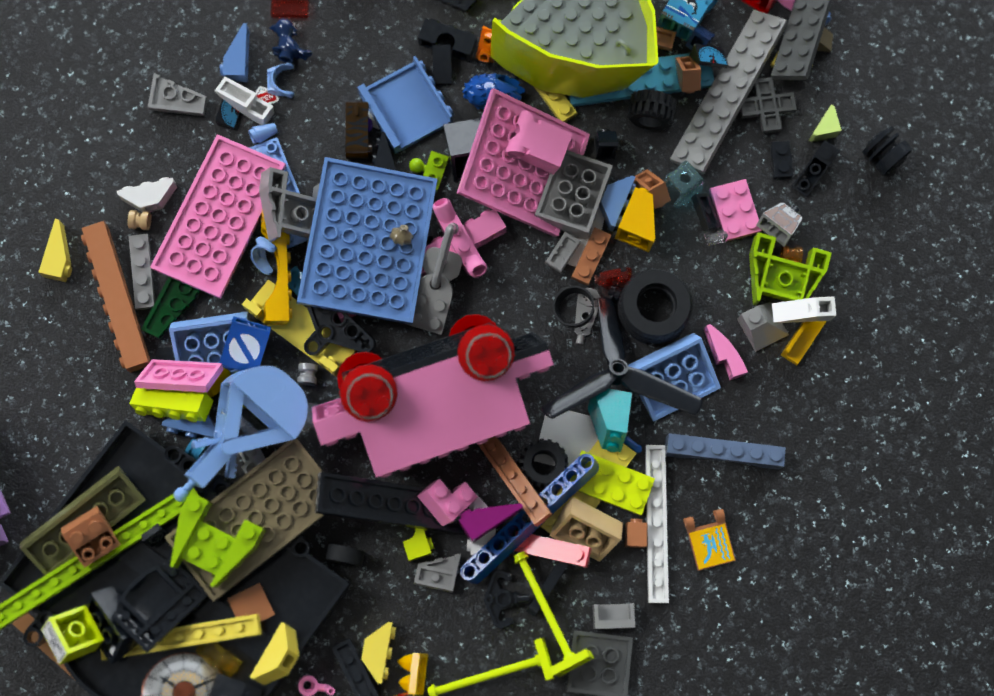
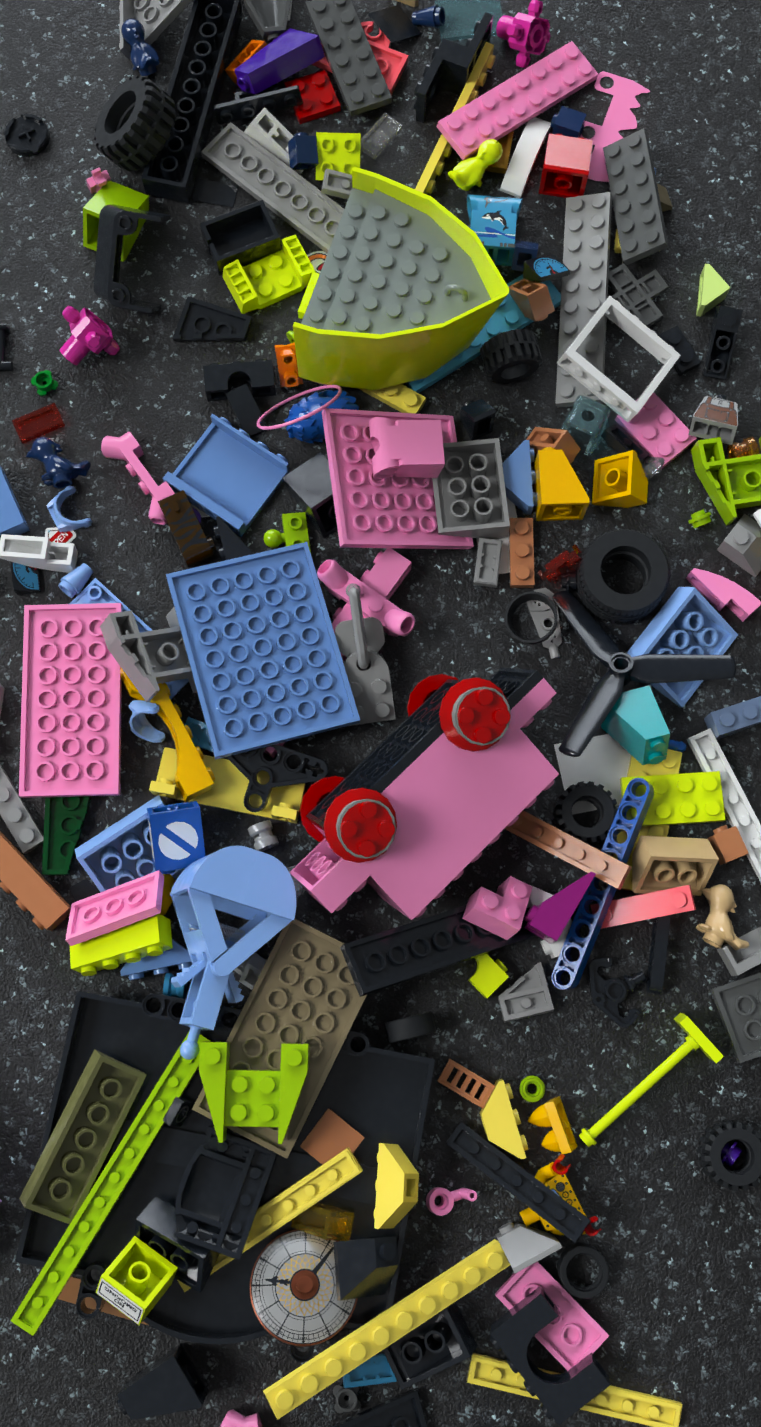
camera: 20 degrees left, 0 degrees up
(90, 536) = (102, 1151): nougat slope -> none
(342, 54) = (129, 450): none -> bright pink plate
(372, 629) = (461, 1091): none -> nougat slope
(401, 235) = (299, 624): dark tan piece -> none
(406, 634) = (540, 1088): none -> lime plate
(478, 88) = (303, 417): none -> bright pink piece
(571, 660) = (731, 1025): neon yellow tile -> none
(600, 587) = (718, 926): none -> tan animal
(688, 237) = (619, 481): none -> yellow slope
(705, 158) = (601, 385): none -> white window
(734, 290) = (700, 518): none -> lime plate

